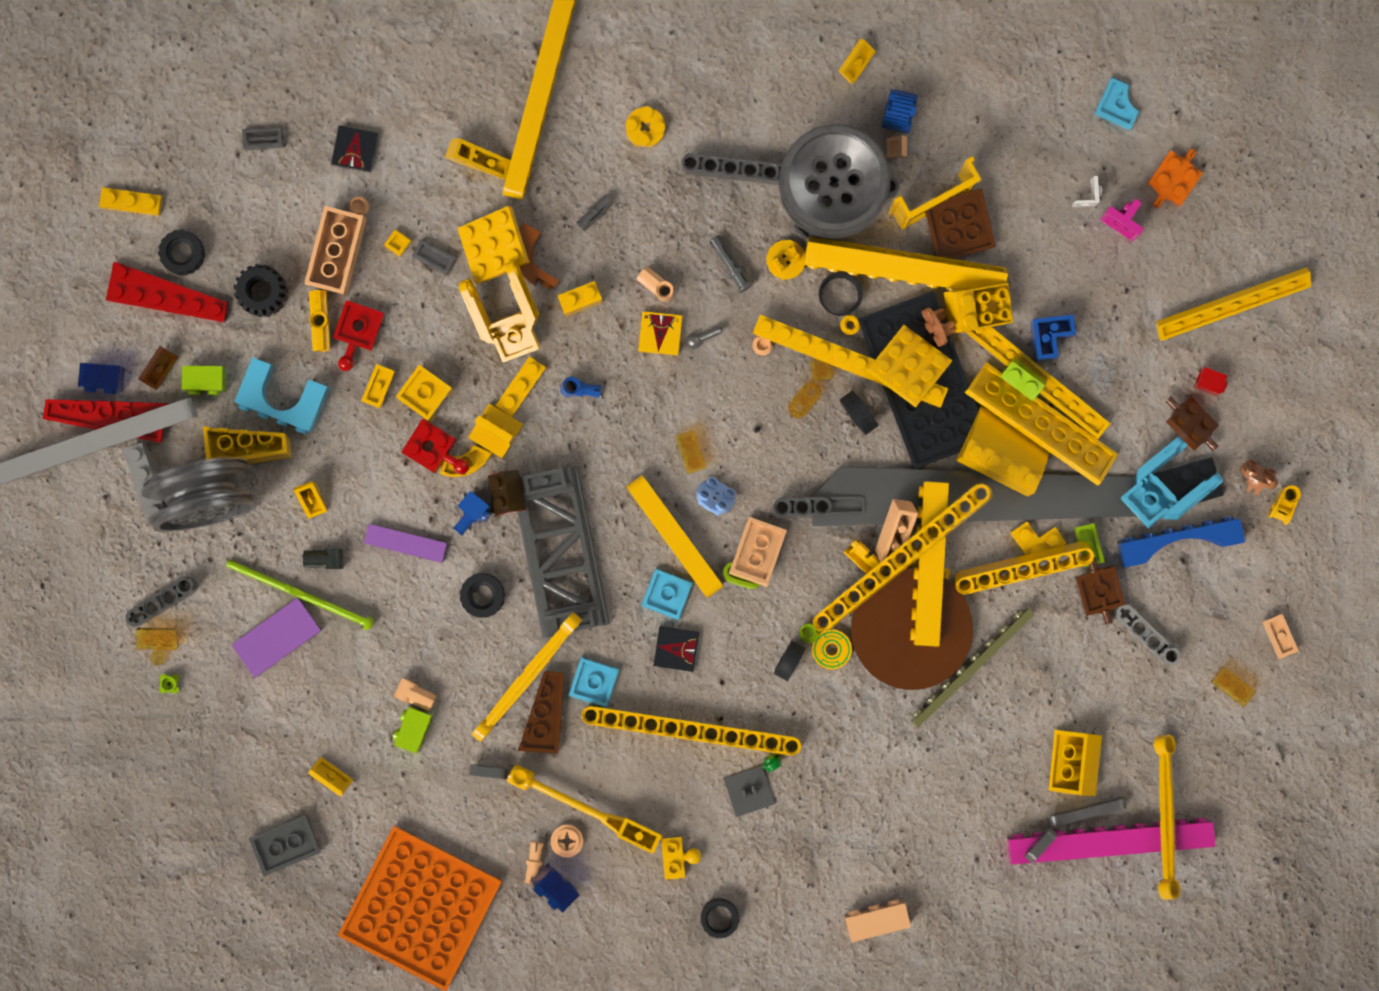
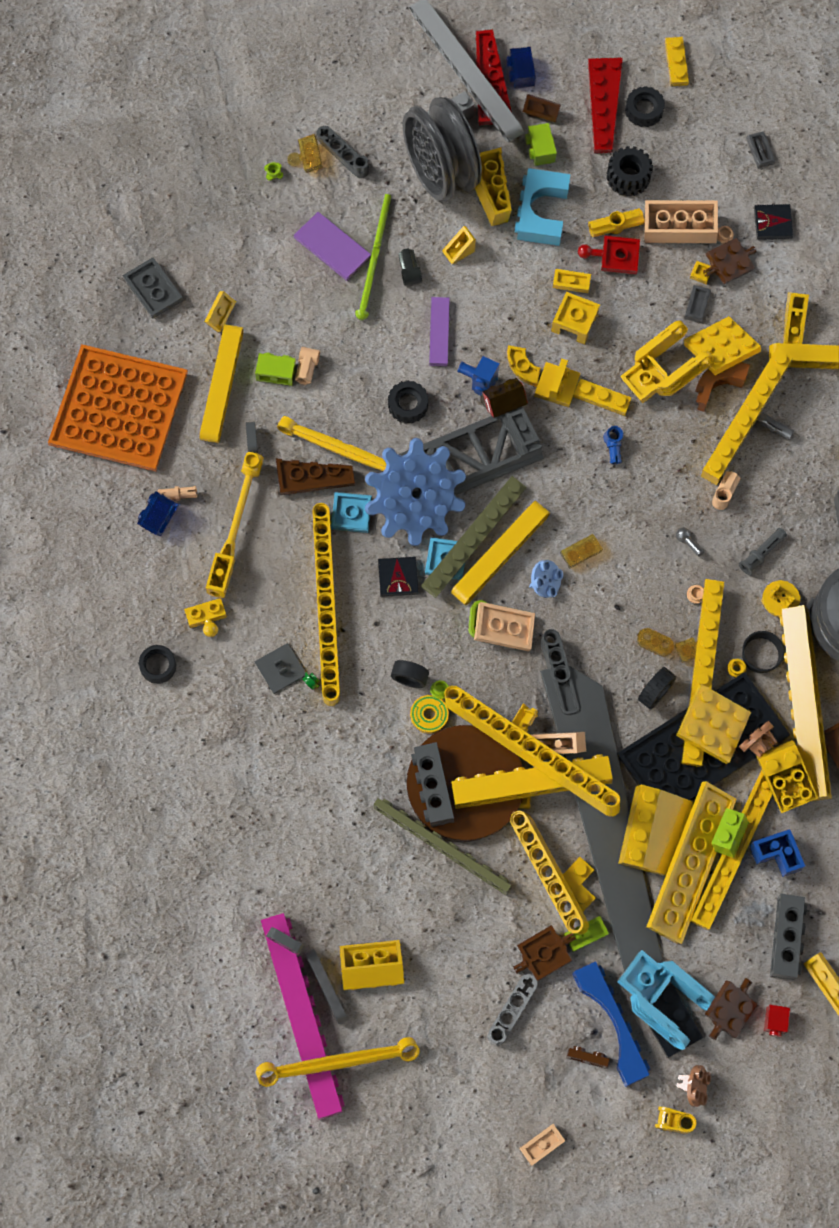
camera: 70 degrees right, 15 degrees down
(393, 209) = (730, 261): none -> reddish brown plate
(416, 791) = (221, 383): none -> yellow beam
(442, 445) = (519, 337): red plate -> none
(560, 848) = (194, 515): light nougat gear -> none
(577, 616) = (396, 486): none -> medium blue plate
(580, 299) = (694, 427): yellow brick -> none
(581, 241) = (746, 416): none -> yellow brick
(651, 560) = (473, 537): none -> olive plate
(660, 333) = (682, 504): yellow tile -> none
(877, 920) = (182, 807): light nougat brick -> none
(943, 658) = (430, 754): none -> dark grey brick
(1102, 343) = (780, 967): none -> dark grey brick
(1212, 565) = (596, 1059): none -> reddish brown plate
(1233, 686) = (481, 1107): clear yellow plate -> none

